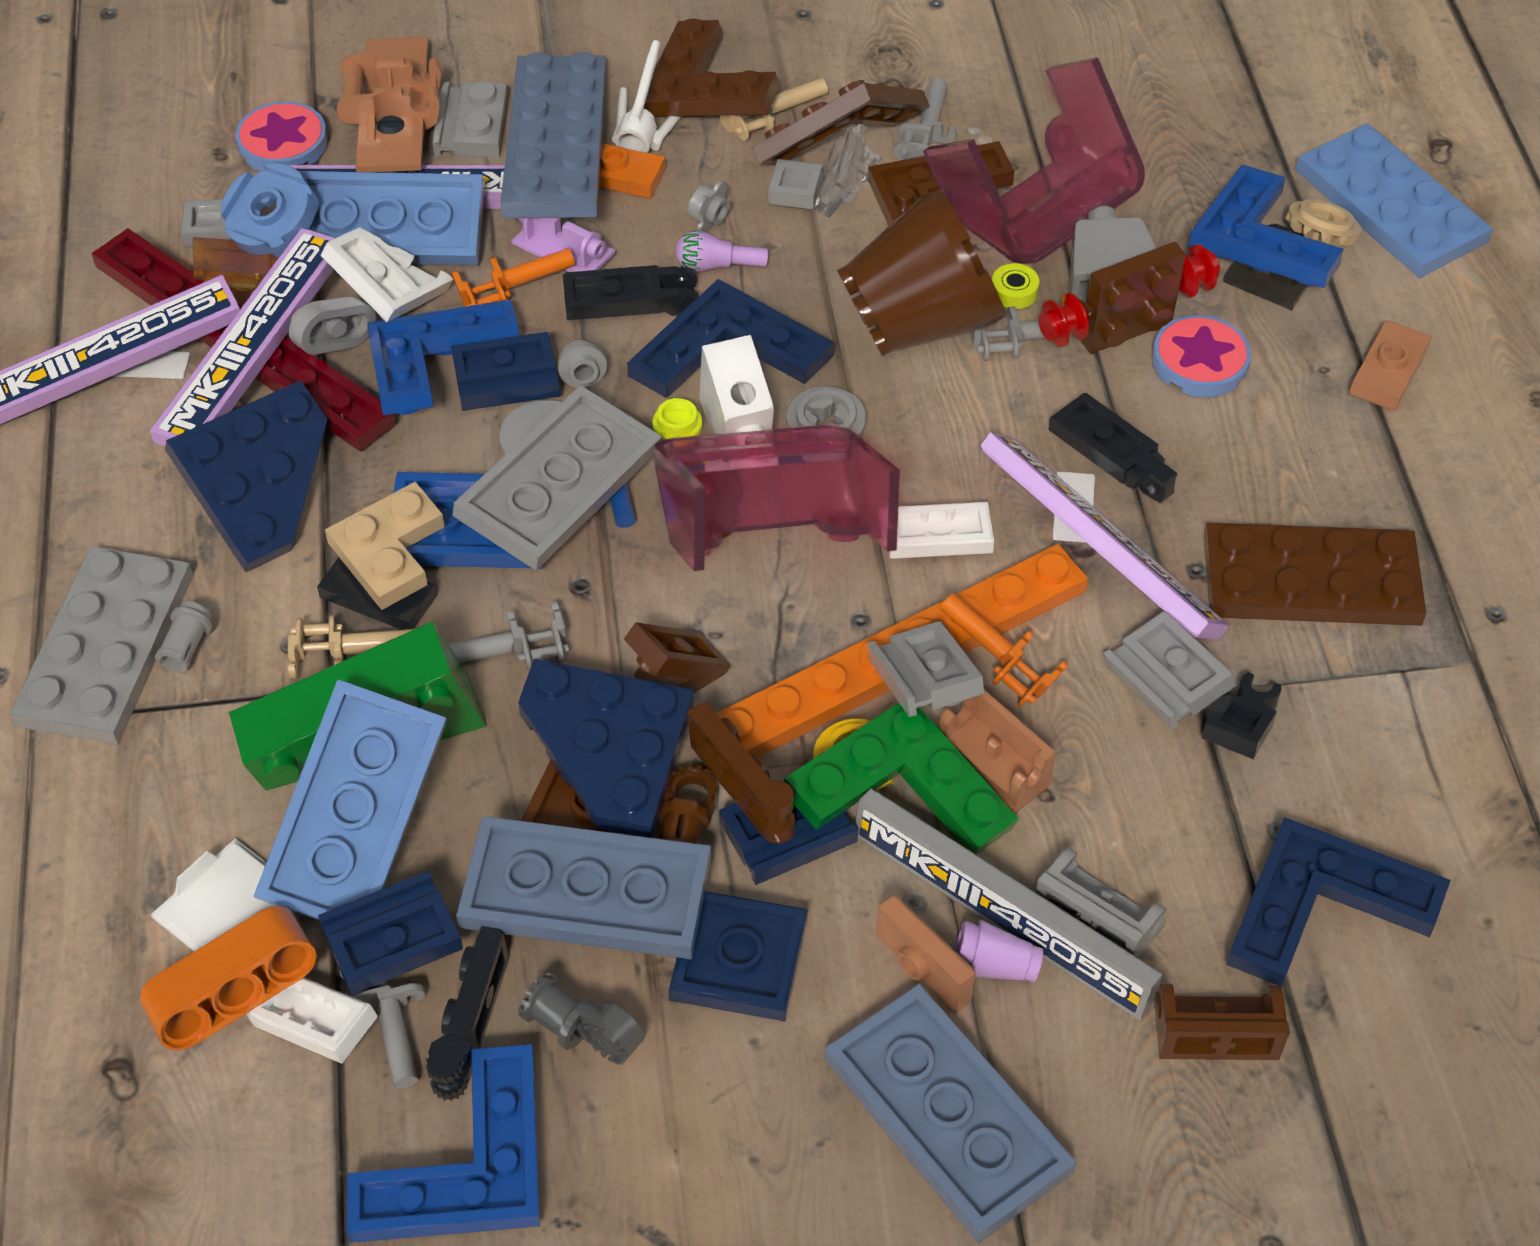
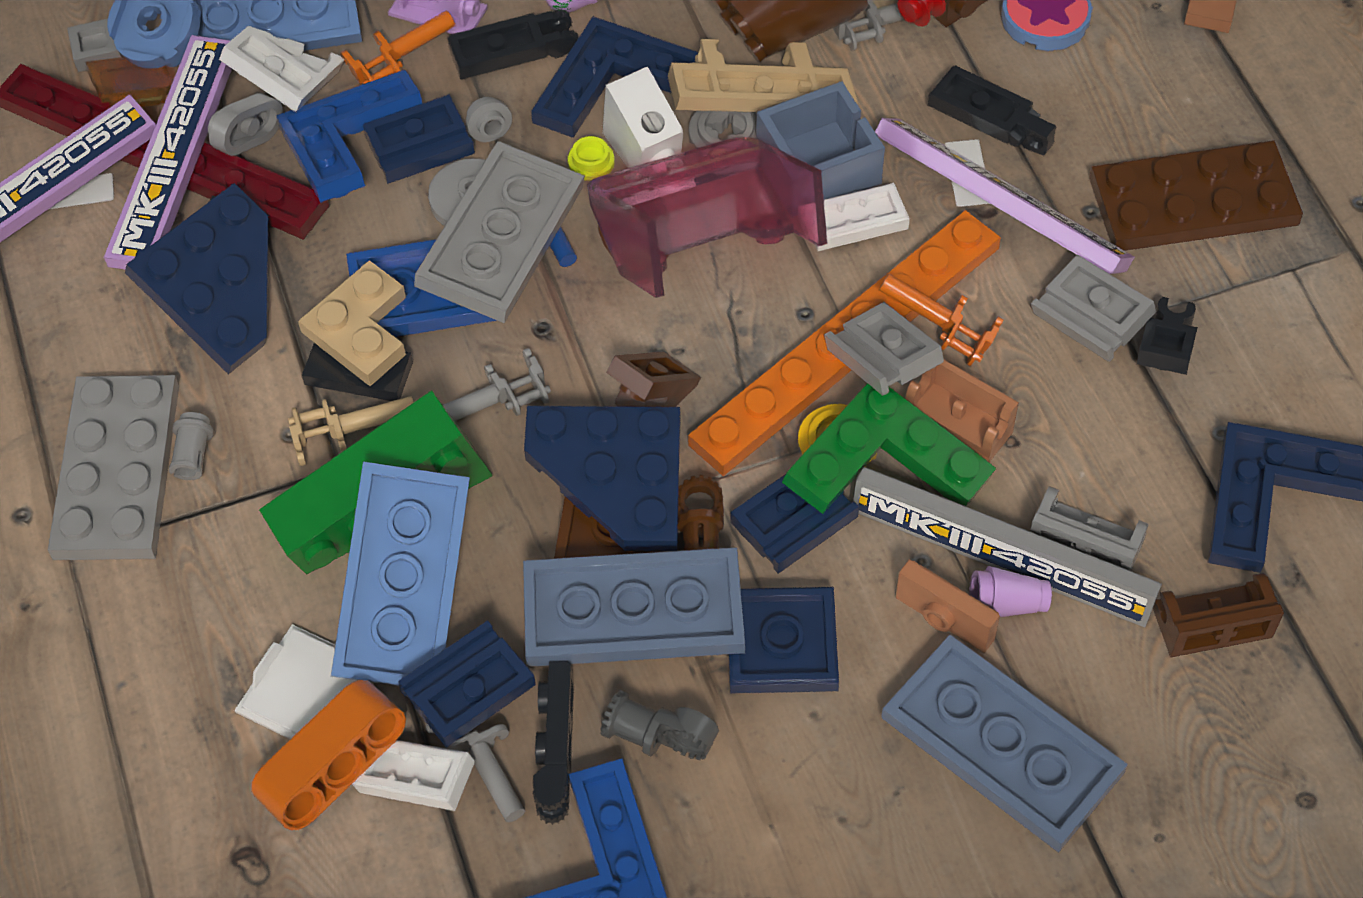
camera: 10 degrees left, 5 degrees up
(742, 774) = (745, 476): reddish brown plate -> none
(872, 380) = (719, 86): none -> tan hinge
(927, 441) = (824, 132): none -> sand blue piece

